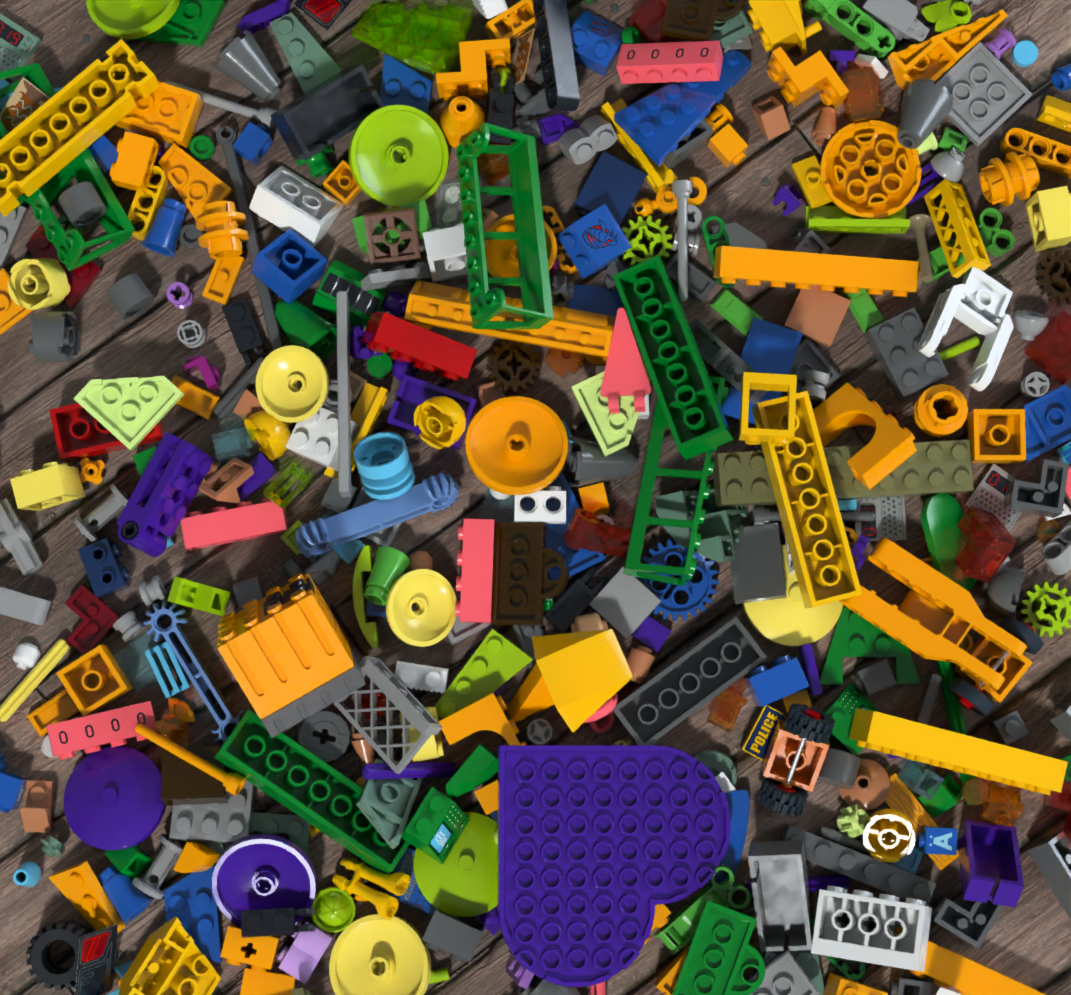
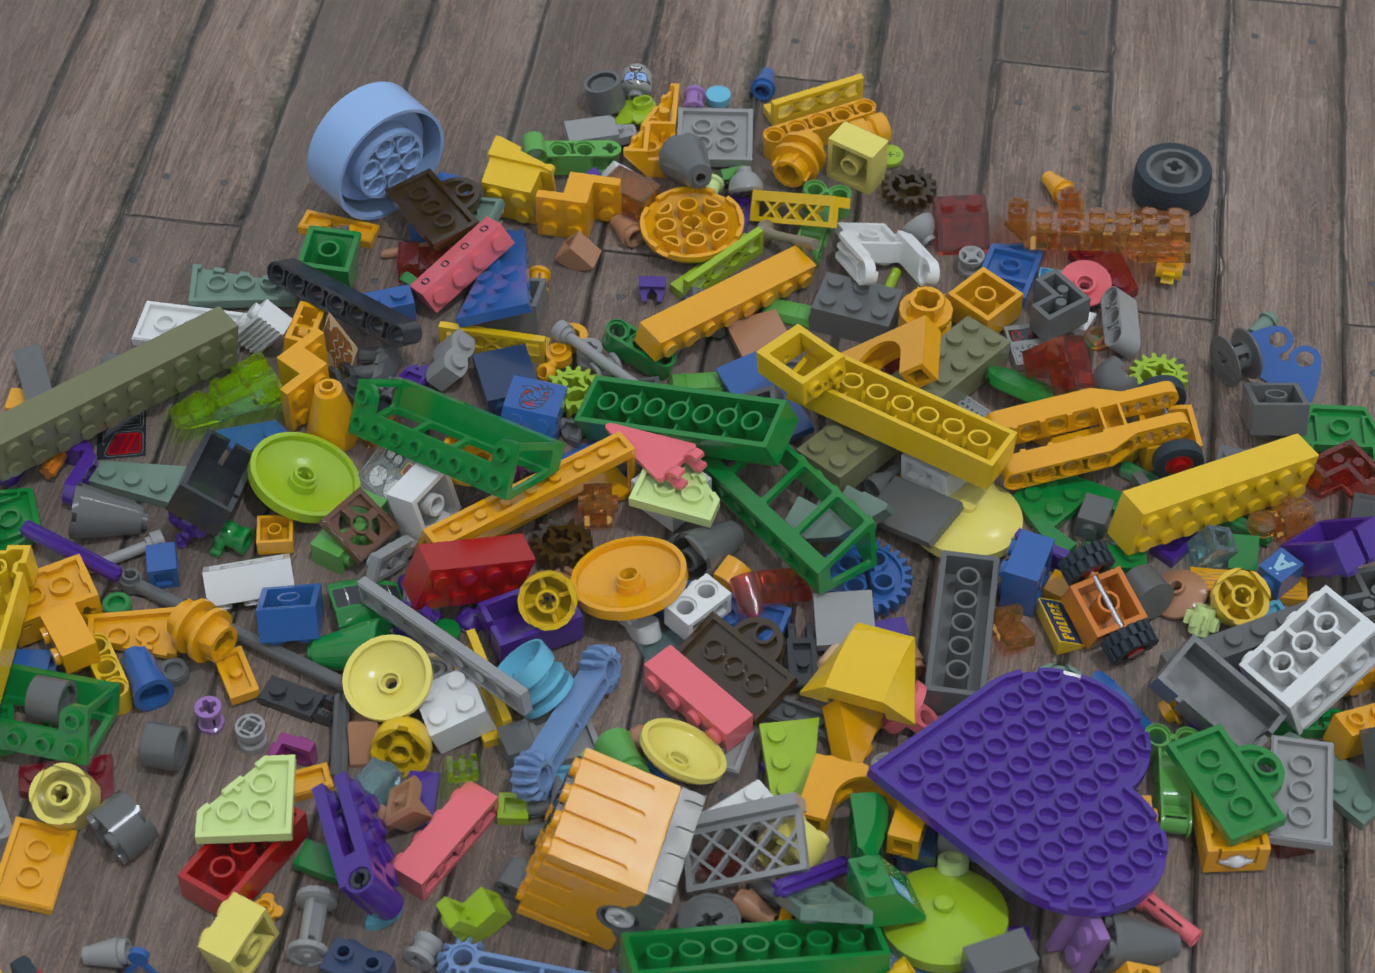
camera: 45 degrees left, 35 degrees down
(203, 80) = (67, 549): none -> dark purple axle
(728, 146) = (566, 290): light orange brick -> none
(809, 178) = (656, 265): yellow plate -> none

